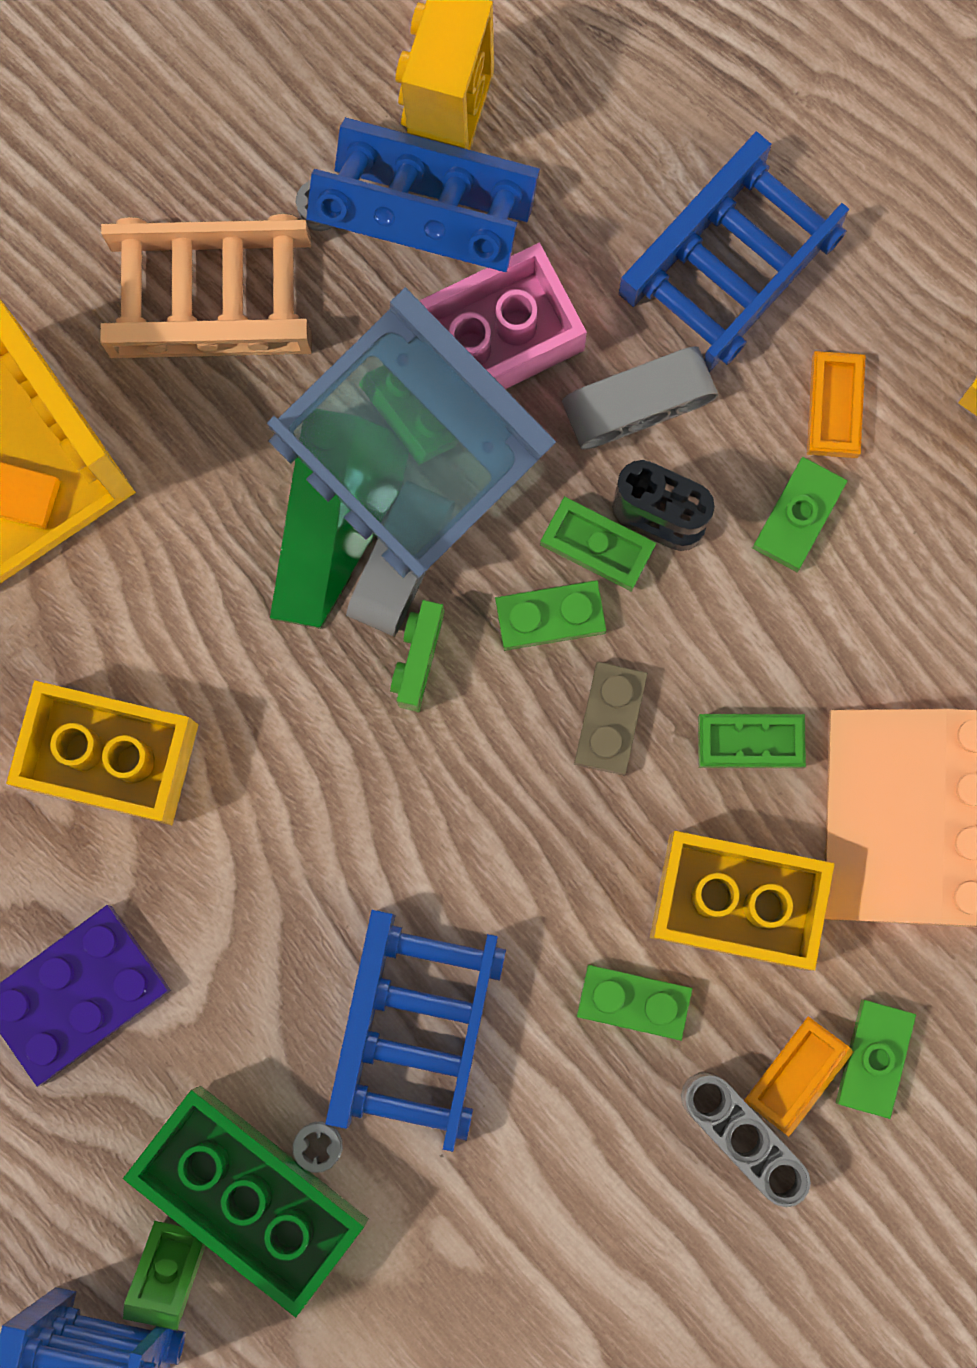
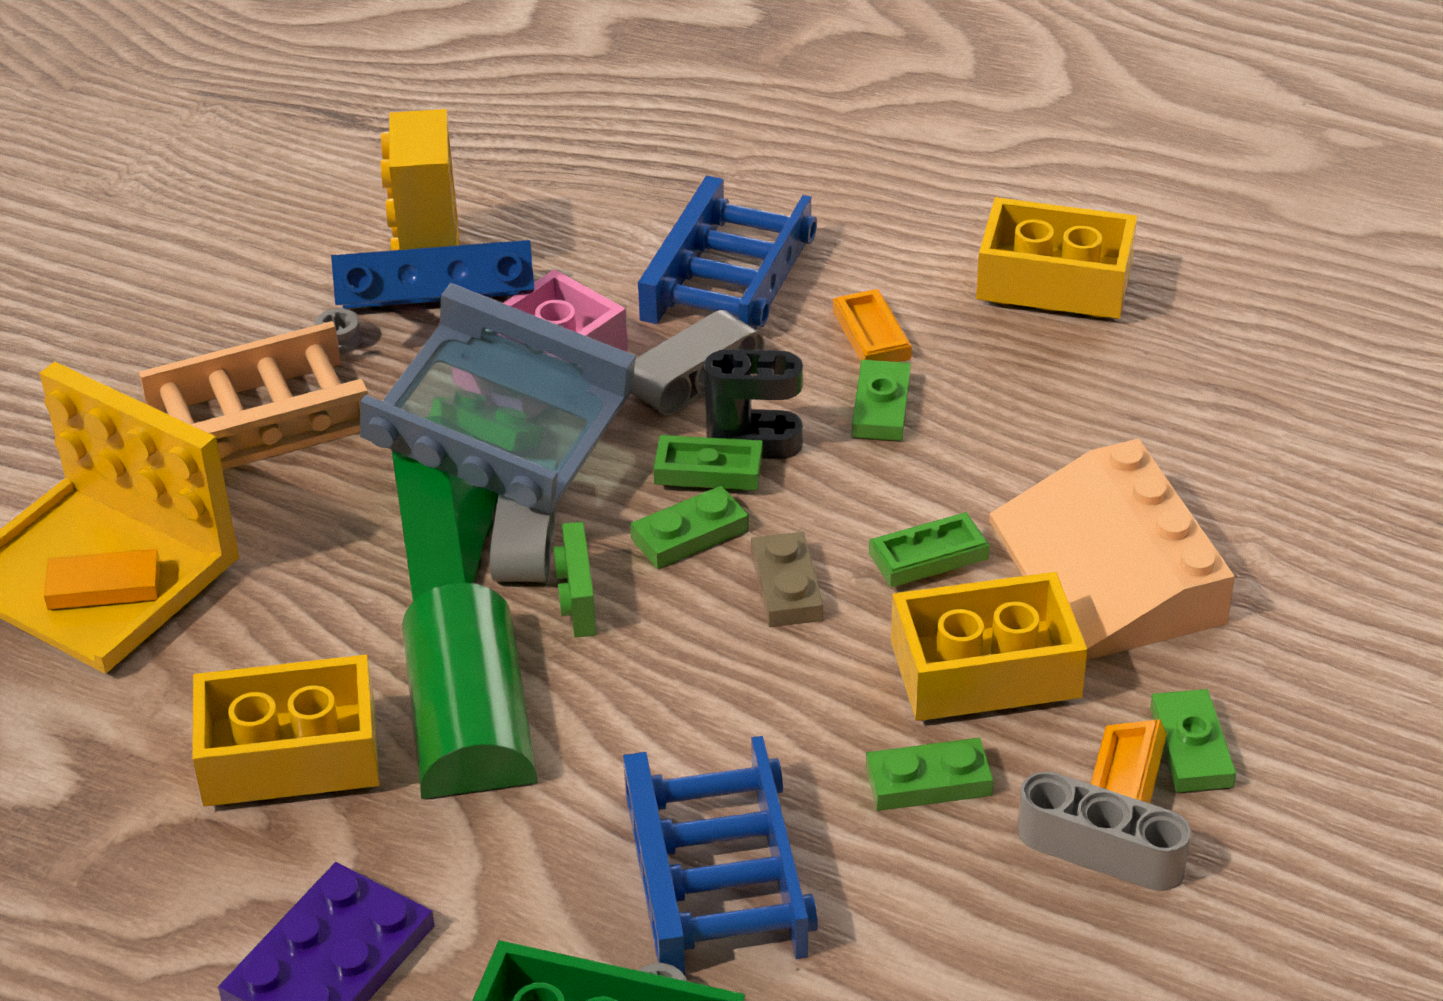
camera: 25 degrees left, 40 degrees down
(278, 755) = (466, 692): none -> green brick

